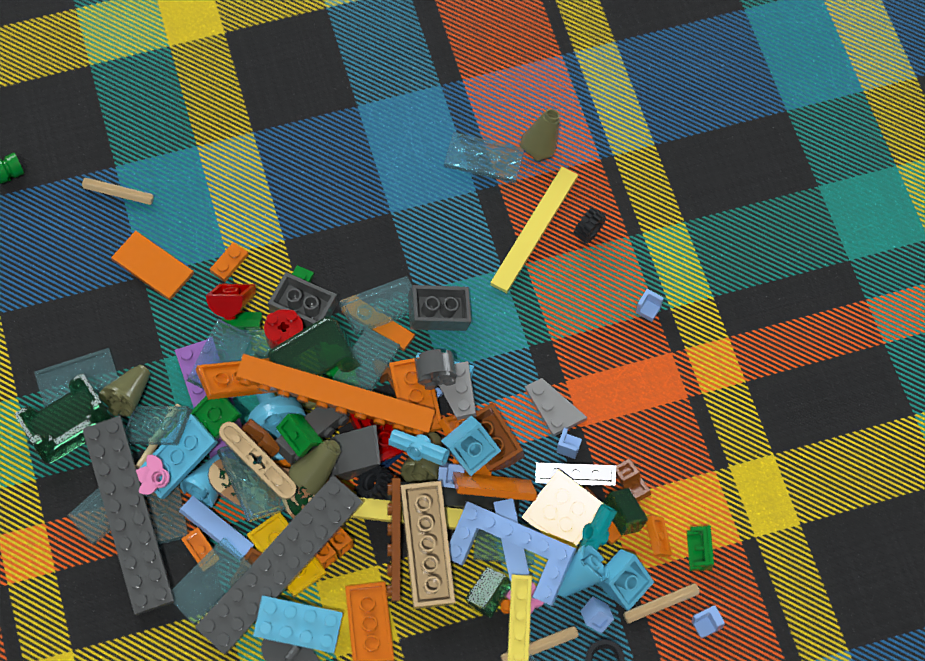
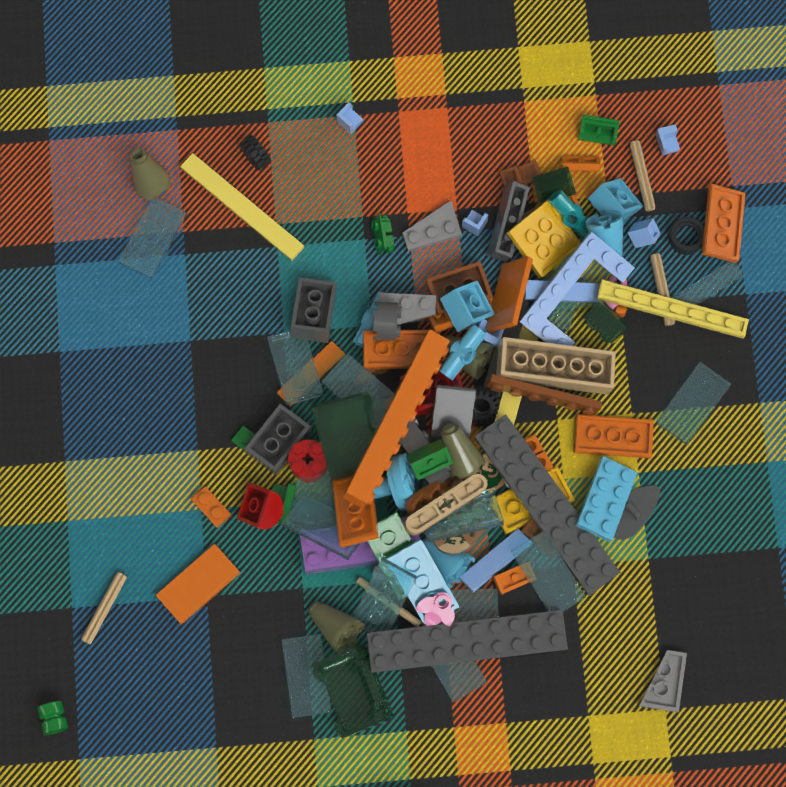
camera: 75 degrees left, 10 degrees up
(543, 357) = (382, 242): none -> green hinge

